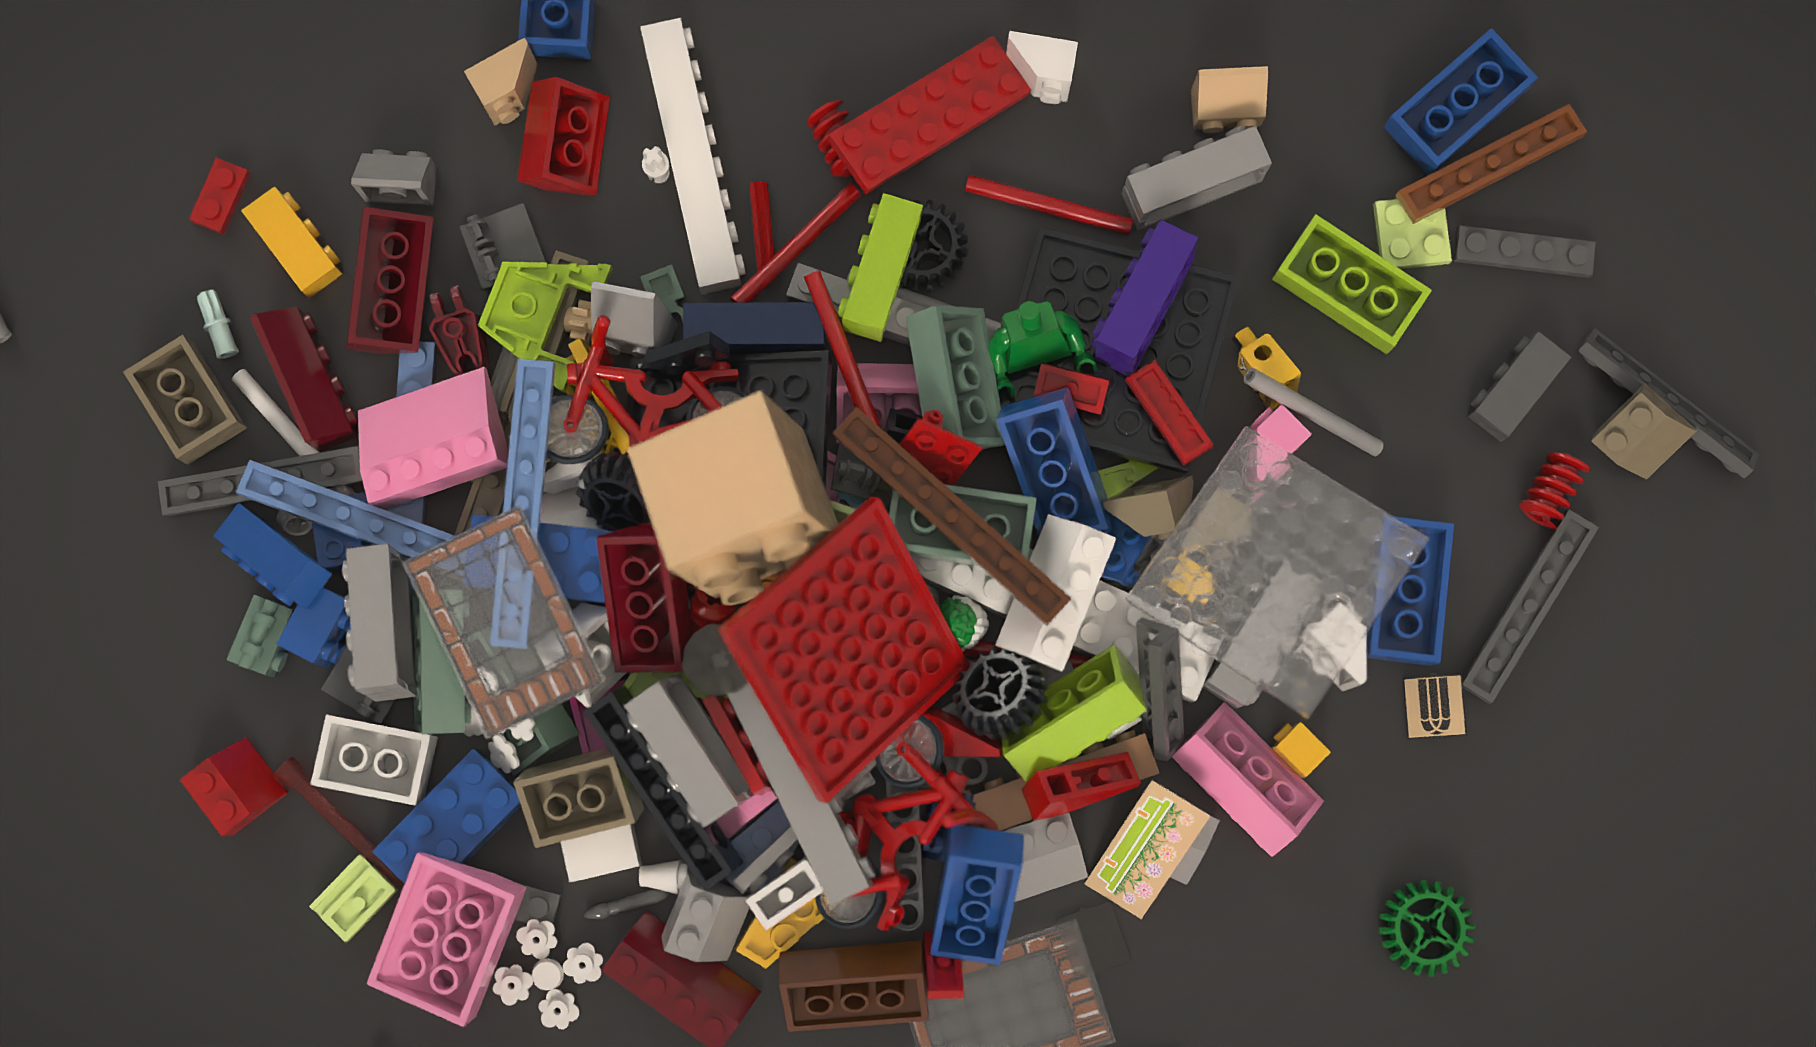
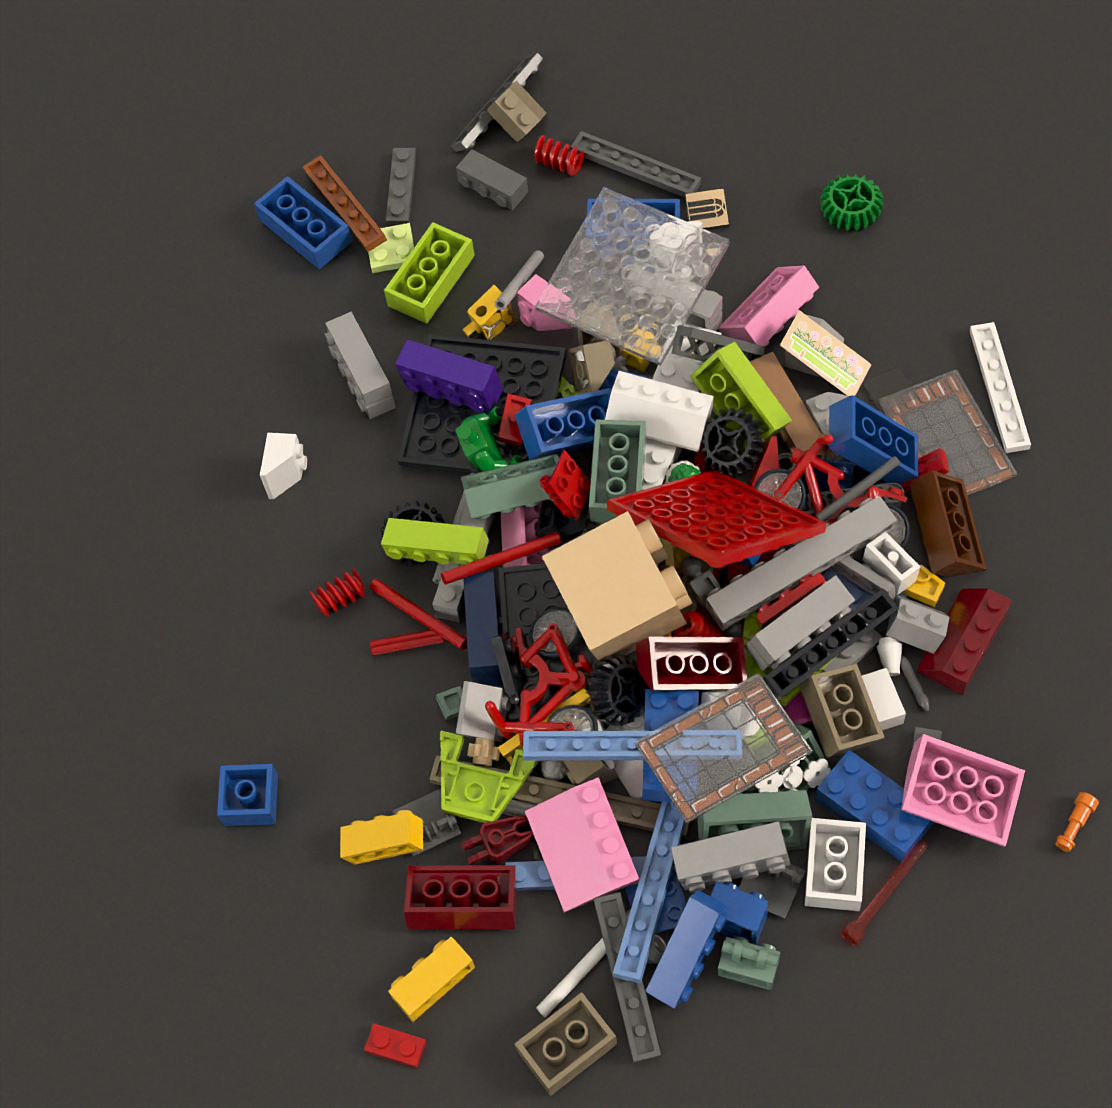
camera: 85 degrees left, 20 degrees down
(217, 324) = (500, 1033): light aqua axle -> none
(233, 787) = (871, 972): red slope -> none
(305, 377) = (542, 952): dark red slope -> none
(353, 898) = (941, 873): yellowish green plate -> none
(395, 178) = (377, 901): light grey slope -> none
(474, 184) = (381, 837): none -> yellow brick
(504, 81) = (302, 824): tan slope -> none
(547, 974) = (975, 728): white plant -> none
(563, 137) = (340, 785): red slope -> none
(655, 164) = (361, 712): white axle -> none
(691, 156) = (351, 692): white brick -> none
(698, 664) = (737, 621): clear smoke plate -> none
(897, 860) = (858, 489): none -> dark grey piece
(928, 115) = (319, 534): red plate -> none
(951, 516) = (613, 466): reddish brown plate -> none
(1049, 204) = (380, 460): red piece -> none
(1078, 785) = (789, 391): red slope -> none
(1169, 412) = (527, 359): red plate -> none
(1229, 98) = (303, 352): tan slope -> none
(1299, 748) = (745, 279): yellow brick -> none

